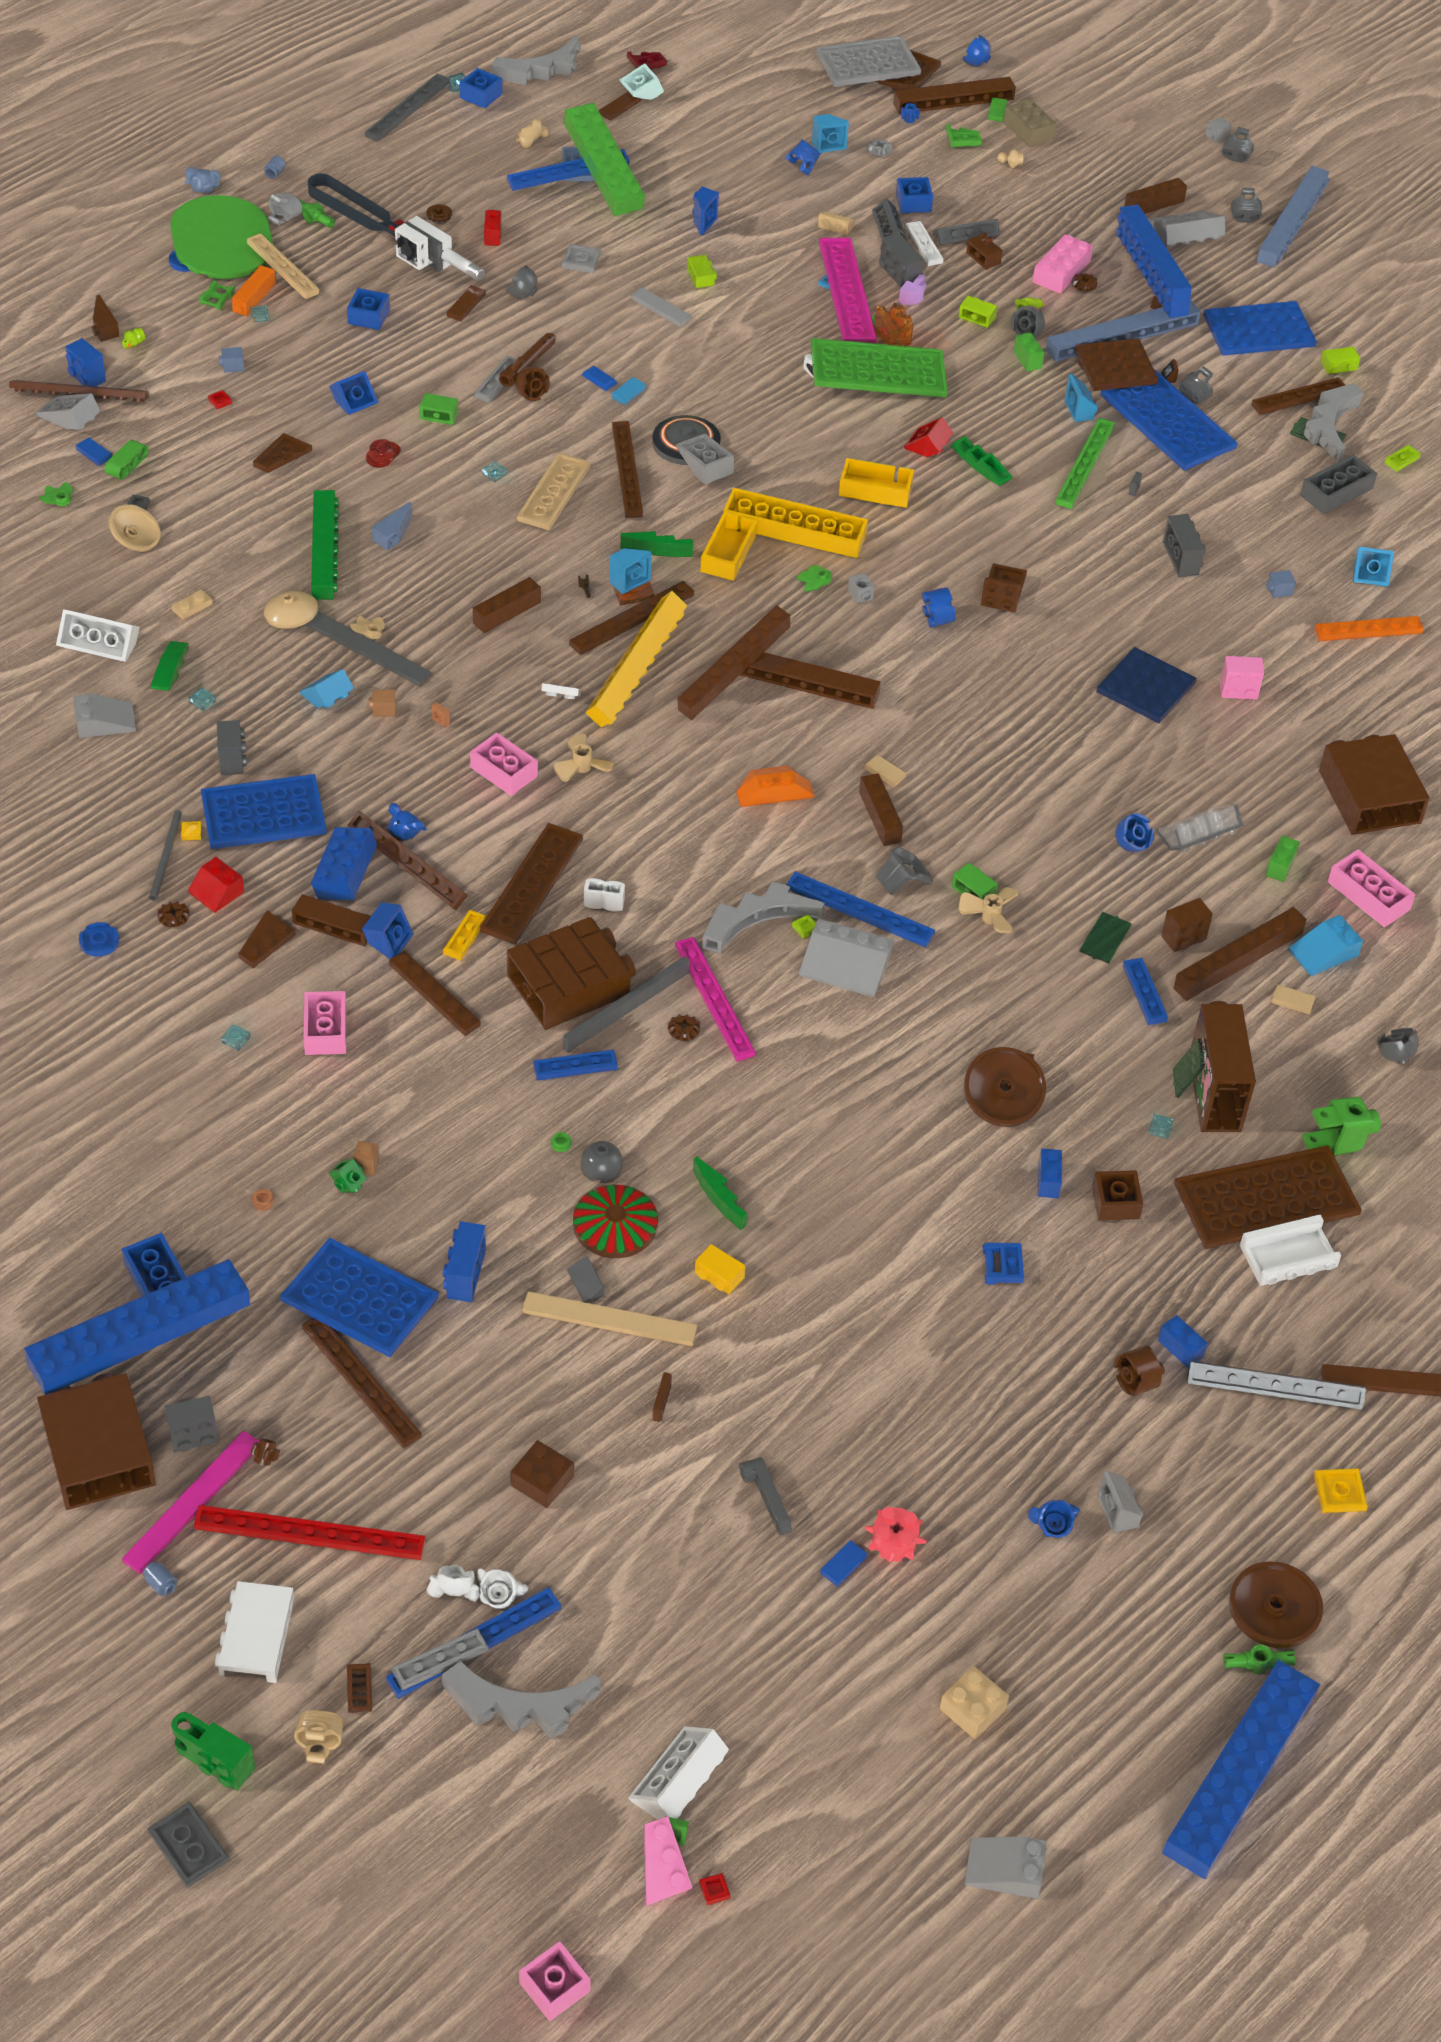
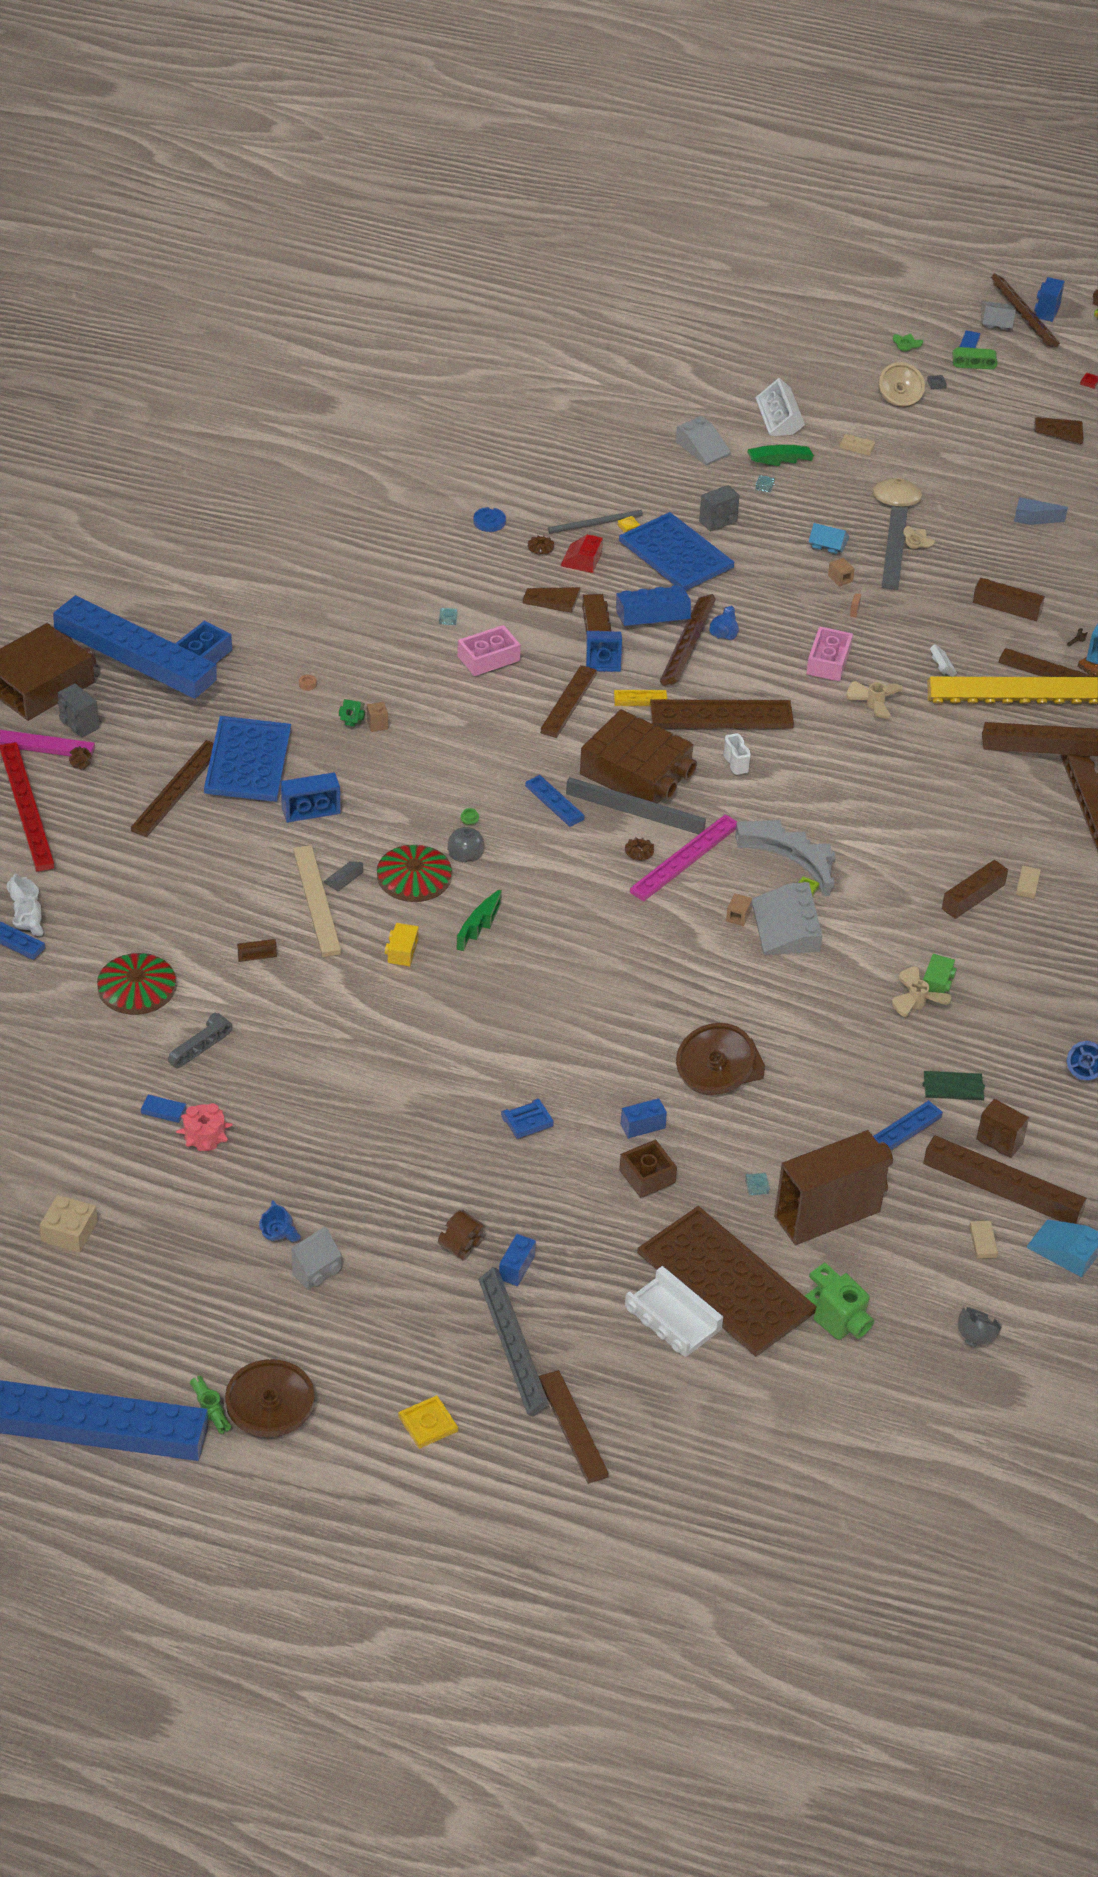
camera: 65 degrees right, 5 degrees down
(324, 545) = (981, 483): green brick -> none
(542, 1474) = (144, 906): reddish brown brick -> none
(648, 1524) = (136, 983): none -> dish
(773, 786) = (948, 818): orange wedge -> none
(814, 987) = (739, 909): none -> medium nougat brick
(861, 909) = (850, 913): blue plate -> none
(896, 874) = (906, 921): dark grey piece -> none

